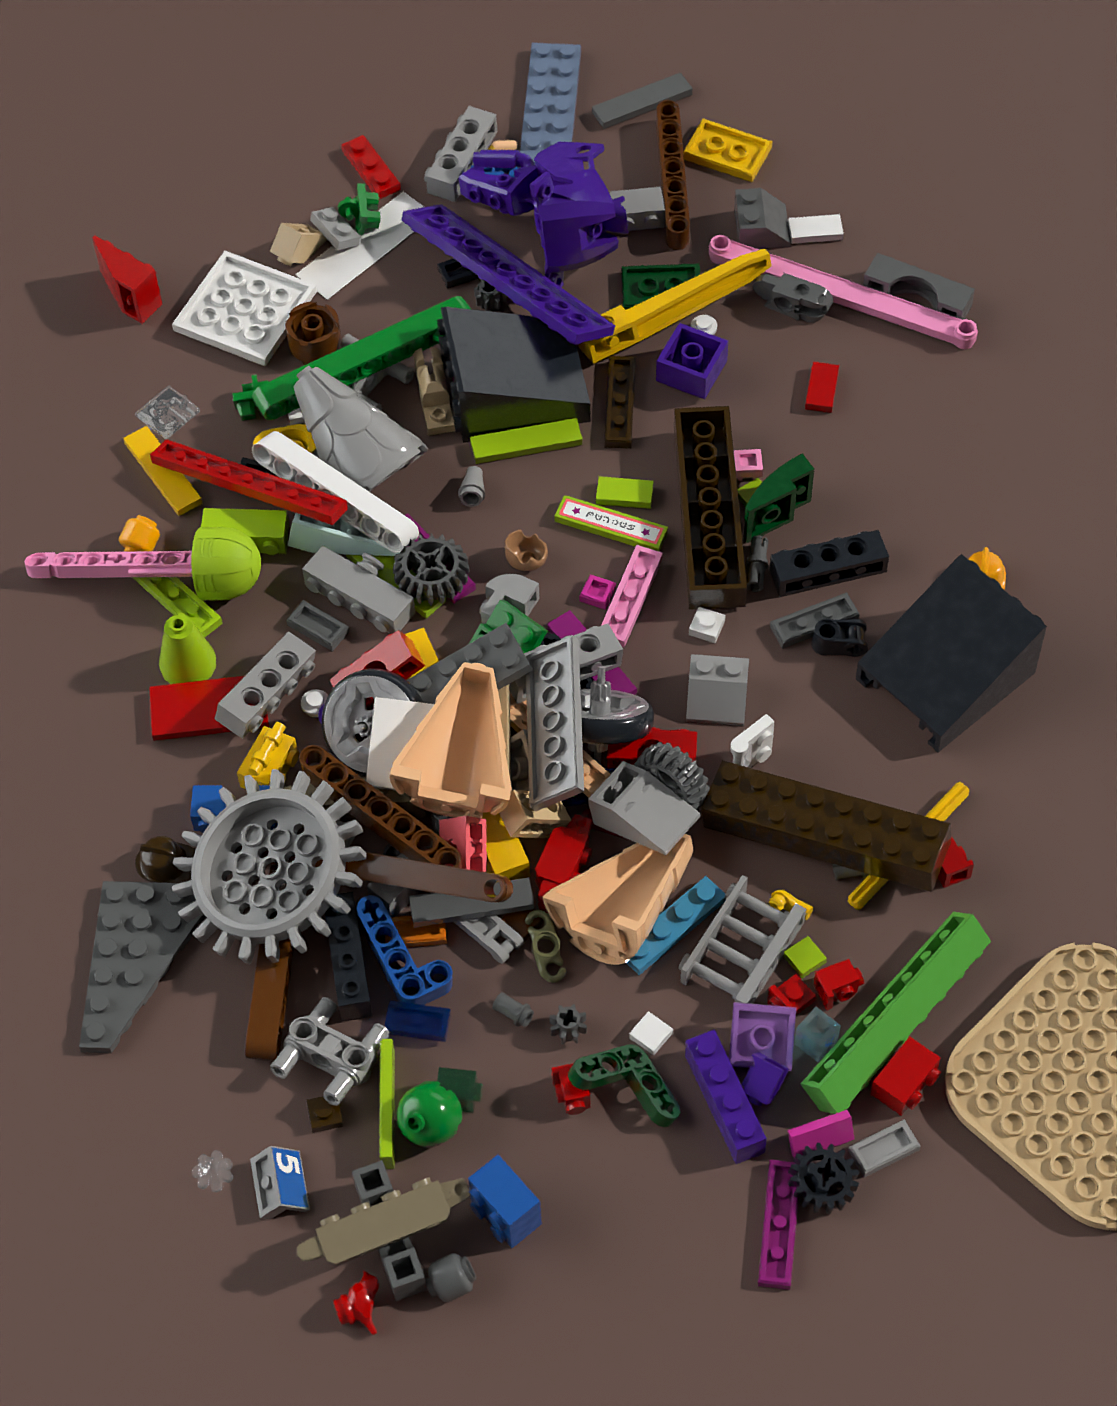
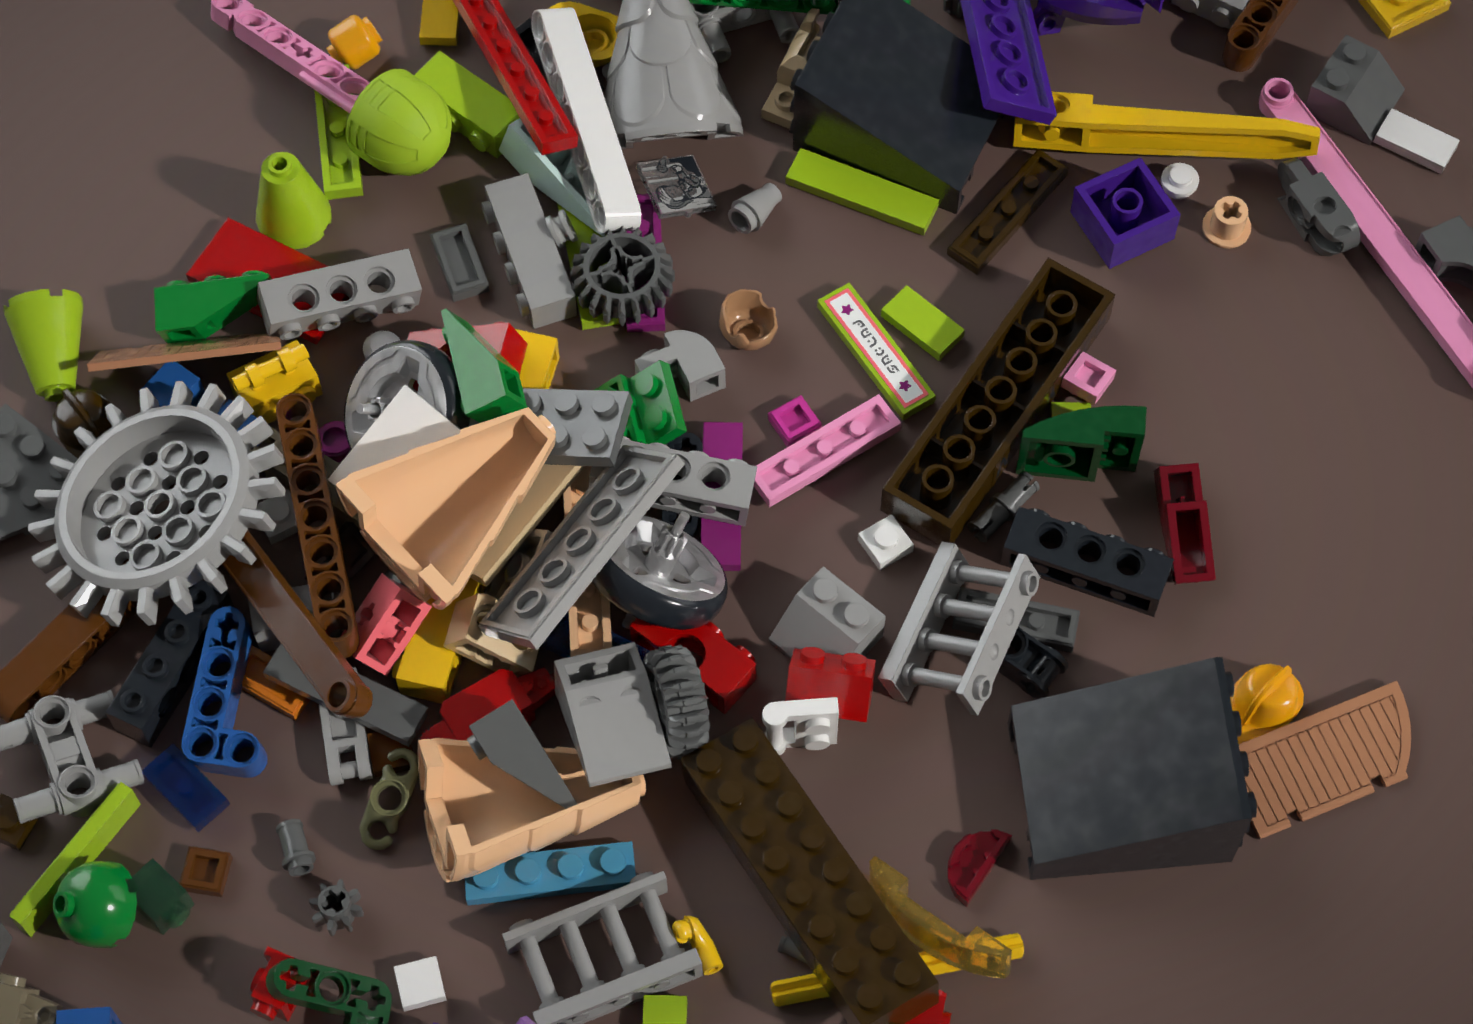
camera: 35 degrees right, 5 degrees up
(100, 824) = (47, 338): none -> lime cone
(182, 748) = (201, 308): none -> green slope
(198, 776) = (183, 351): none -> nougat piece
(414, 664) = (484, 377): none -> slope
(415, 502) = (676, 186): none -> piece
(470, 1057) = (205, 871): none -> reddish brown tile
(606, 862) = (516, 750): none -> dark grey slope
(647, 281) = (1159, 85): dark green tile -> none
(738, 714) = (828, 675): none -> red brick
(749, 334) = (1227, 223): none -> light nougat piece
(767, 638) = (937, 602): none -> light grey fence
(822, 387) = (1262, 340): red tile -> none
(863, 507) = (1185, 523): none -> dark red slope
(900, 763) = (973, 860): none -> dark red tile
(952, 801) = (975, 953): none -> clear yellow slope
(1046, 576) = (1328, 758): none -> nougat piece

